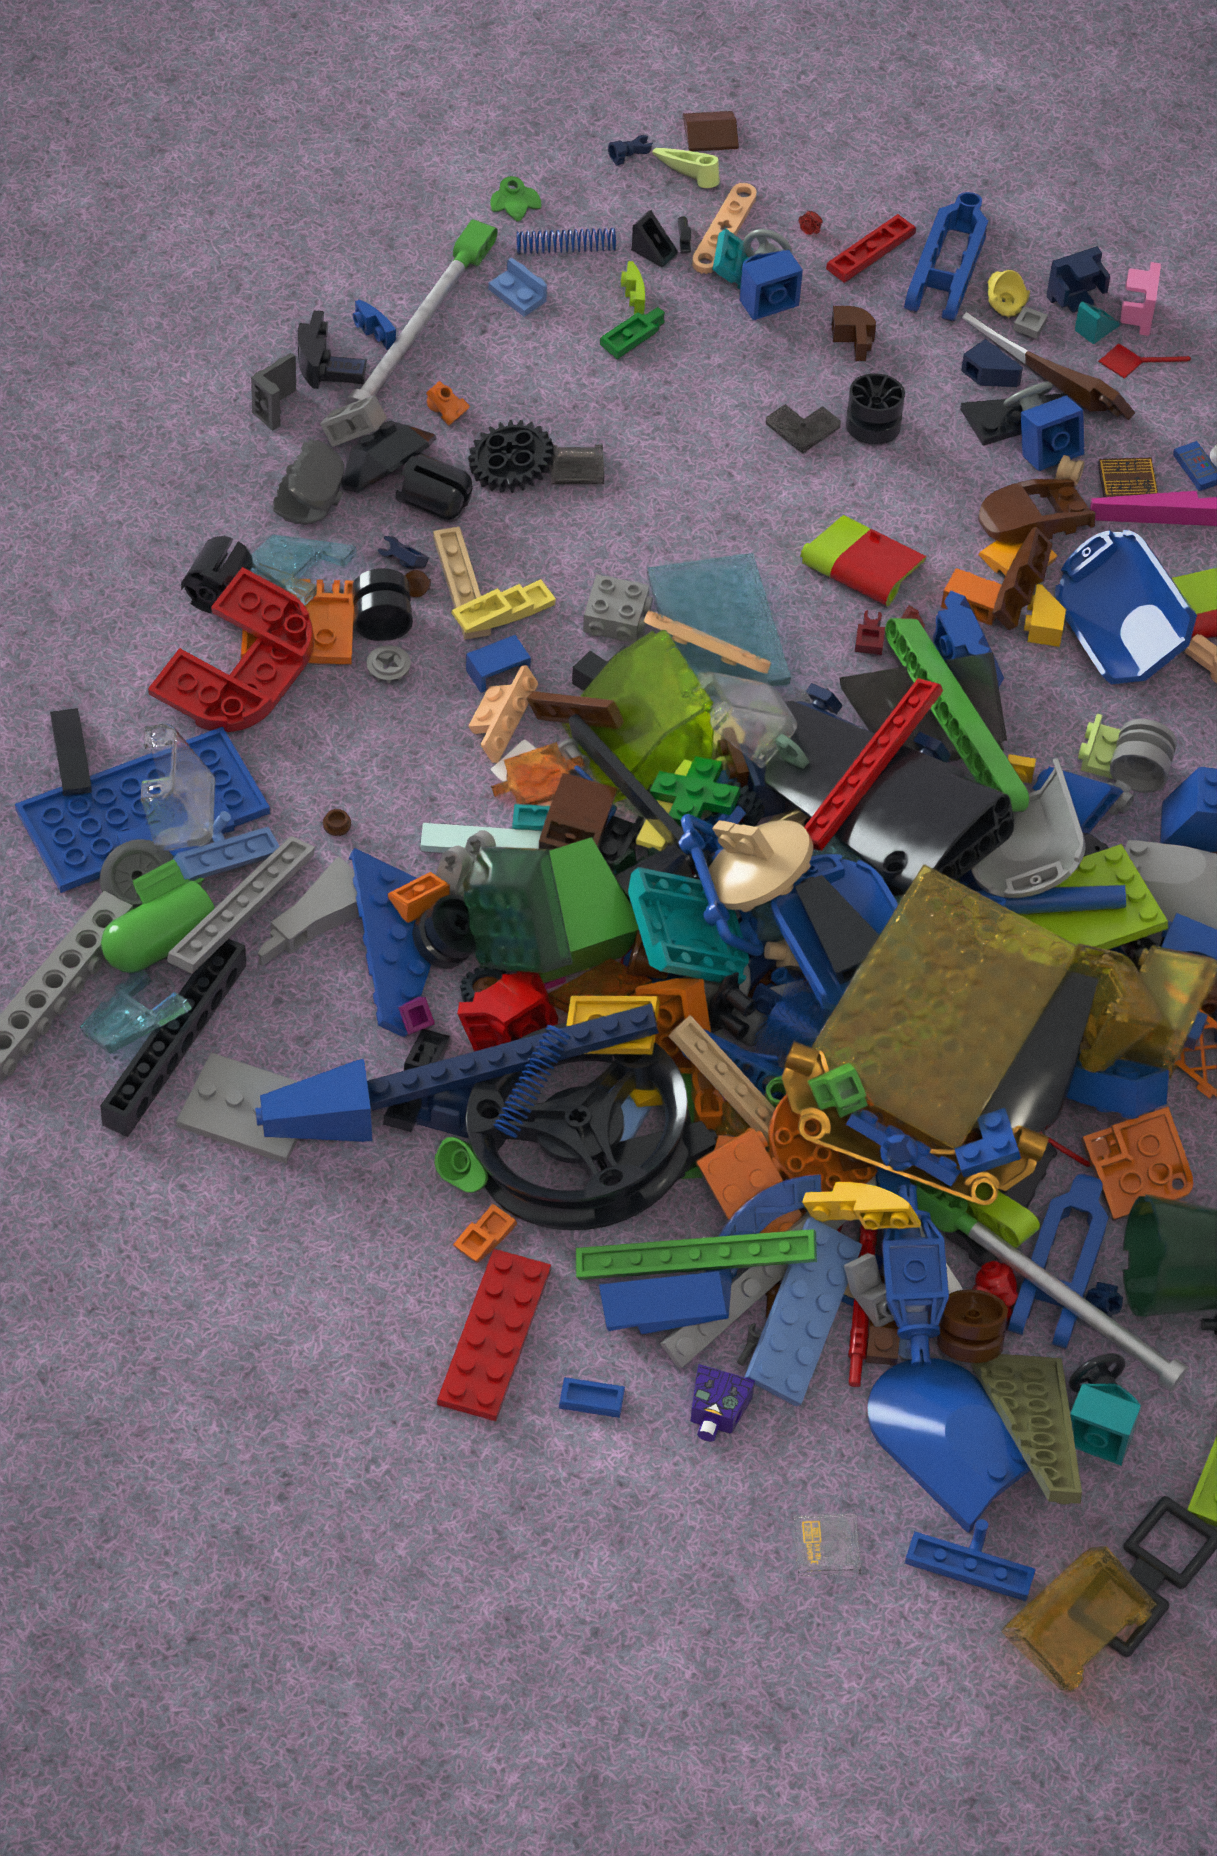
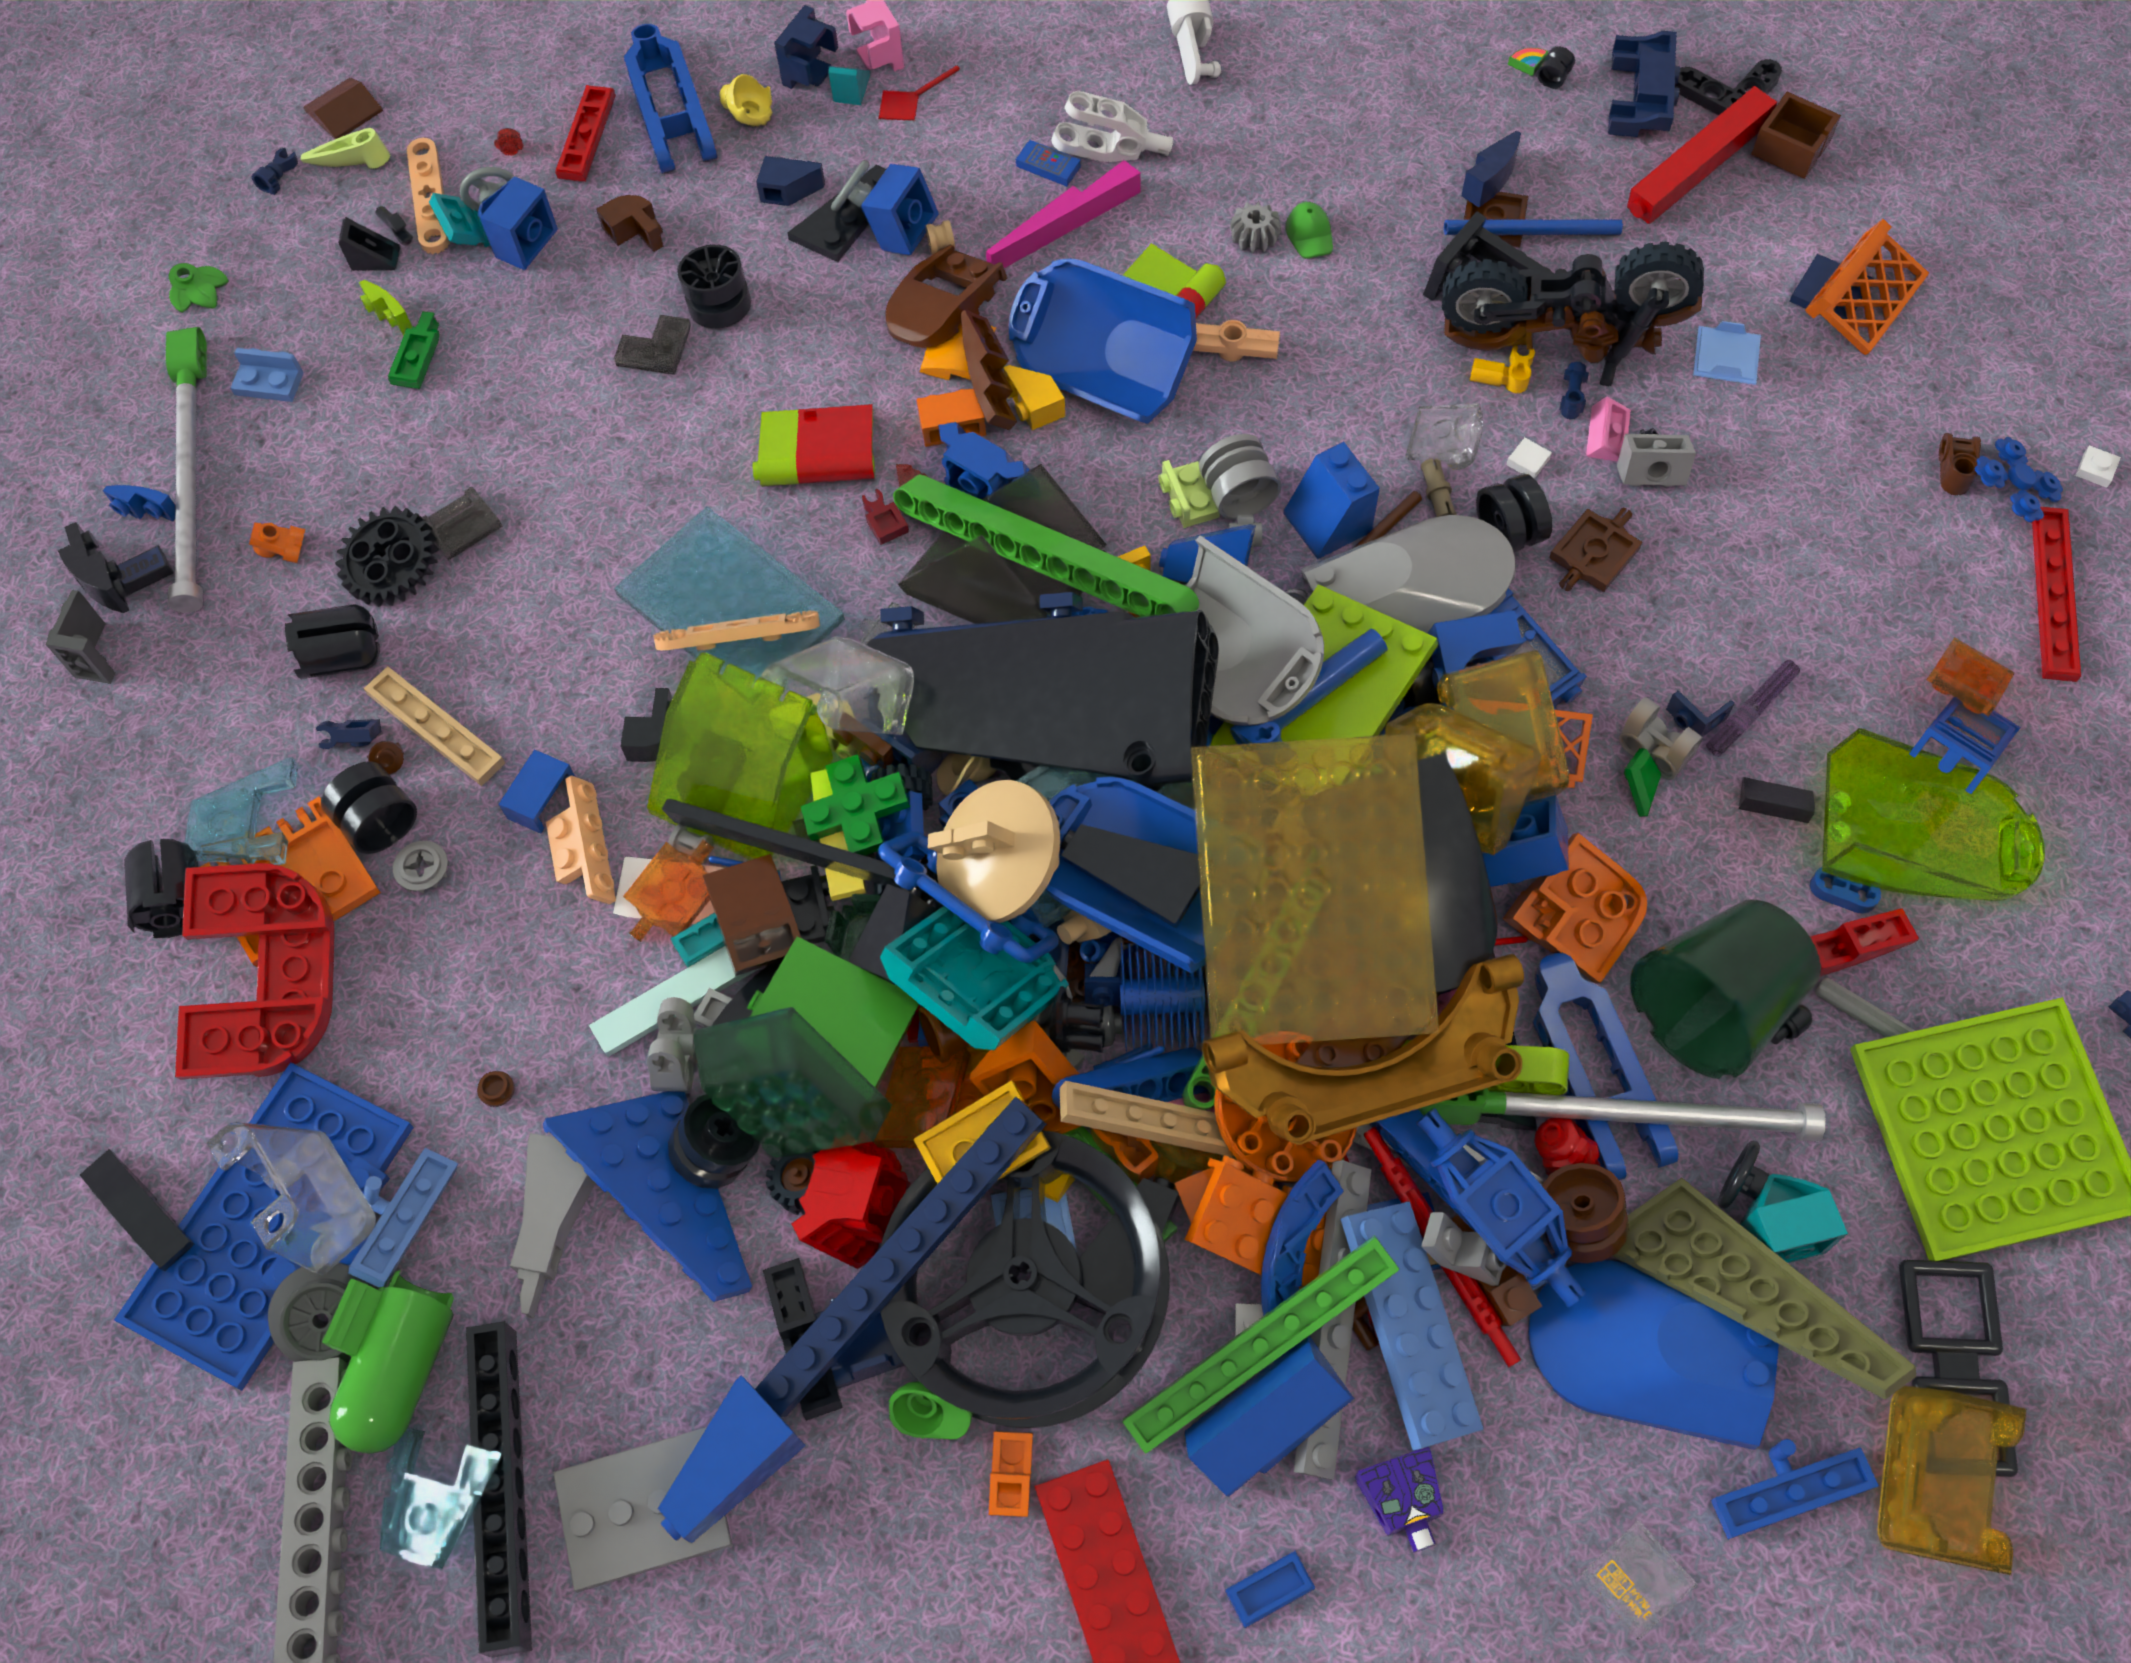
camera: 30 degrees left, 10 degrees up
(240, 904) = (463, 1278): light grey plate -> none
(310, 484) = (195, 721): dark grey animal -> none
(353, 420) = (192, 621): light grey brick -> none
(383, 453) = (251, 637): black wedge -> none
(416, 1015) = (748, 1262): magenta slope -> none
(418, 895) = (652, 1121): orange slope -> none
(503, 607) = (498, 726): light yellow slope -> none
(518, 238) = (227, 322): blue piece -> none
(559, 1032) = (935, 1206): blue piece -> none
(561, 707) = (651, 796): reddish brown plate -> none
(617, 608) = (616, 651): light grey brick -> none
(752, 1341) = (1376, 1390): dark grey hand -> none
(791, 751) = (926, 700): sand green tile -> none
(839, 1089) = (1289, 1060): bright green brick -> none
(863, 1202) = (1418, 1168): yellow slope -> none
(871, 761) = (1023, 661): red tile -> none
(901, 1150) = (1397, 1081): blue plate -> none
(995, 1148) = (1477, 1009): blue plate -> none
(1030, 322) = (790, 117): light grey plate -> none
(1084, 389) = (897, 148): reddish brown plate -> none
(1105, 1298) = (1671, 1082): dark blue gear -> none
(1127, 476) = (995, 213): reddish brown tile -> none

